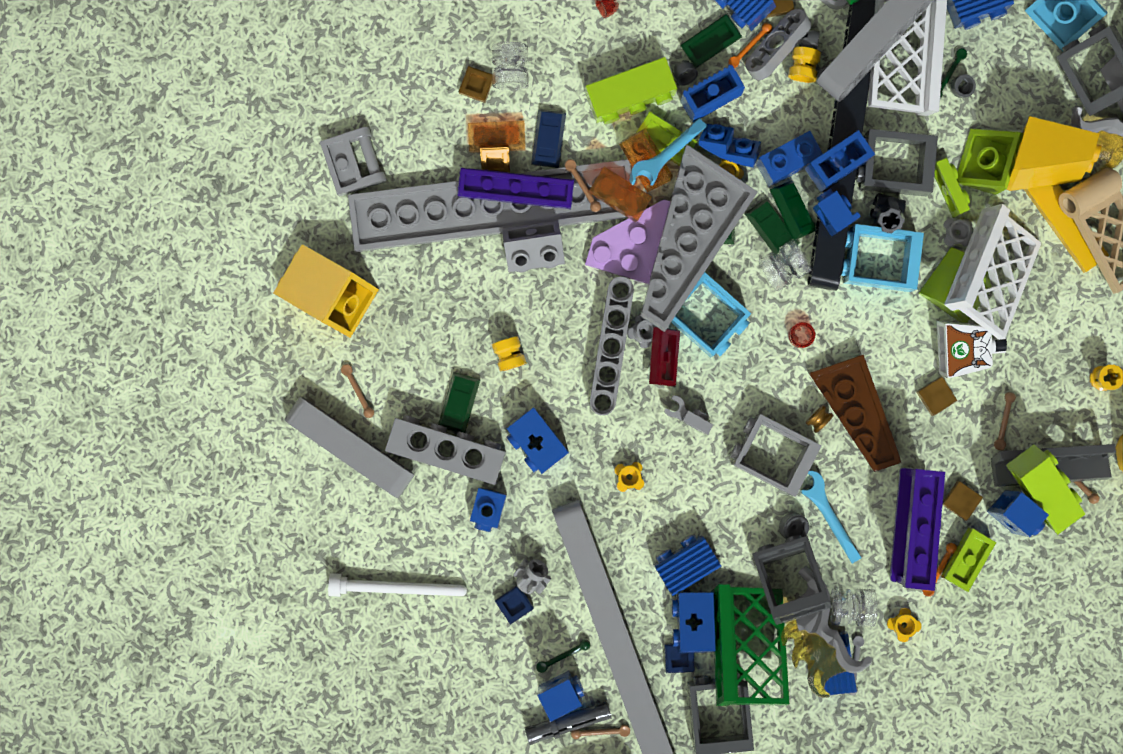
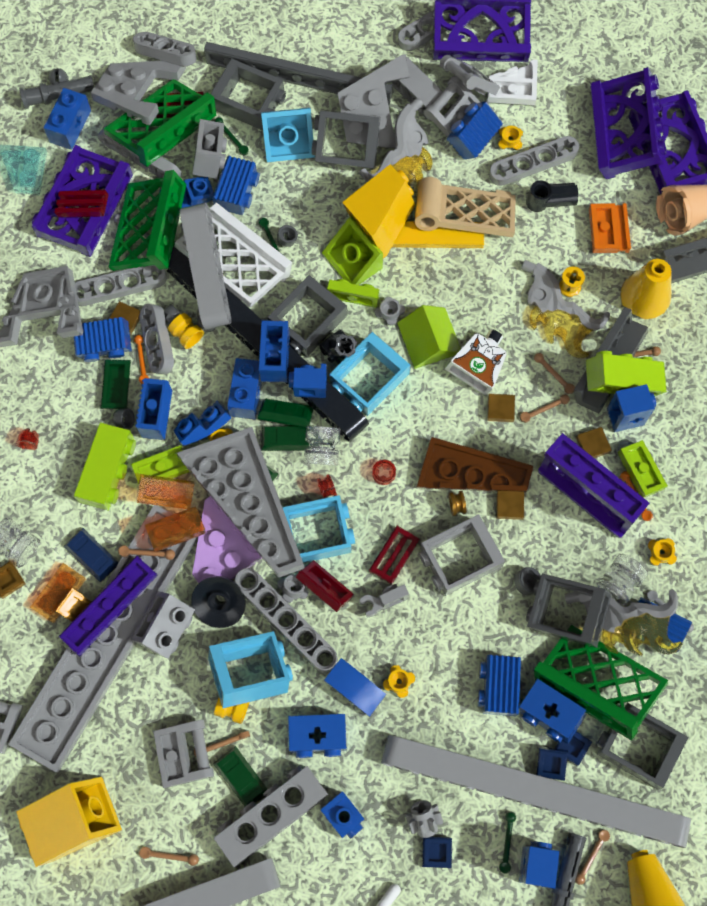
camera: 55 degrees left, 15 degrees down
(436, 336) = (174, 755): none -> light grey plate
(455, 354) = (241, 736): none -> medium nougat hinge
(544, 313) = (243, 648): none -> medium azure window
(576, 277) = (215, 612): none -> black dish
(597, 444) = (355, 687): none -> blue slope
(652, 166) = (173, 488): medium azure piece -> none
(652, 650) = (552, 763): none -> dark blue tile
(710, 398) = (383, 574): none -> dark red tile
(751, 295) = (326, 486): none -> clear red bush
(819, 498) = (515, 546): medium azure piece -> none
(851, 465) = (510, 505): none -> pearl gold tile
(944, 423) = (525, 416): none -> medium nougat hinge
(979, 259) = (422, 308): white fence -> none
(1064, 386) = (555, 314): none -> piece

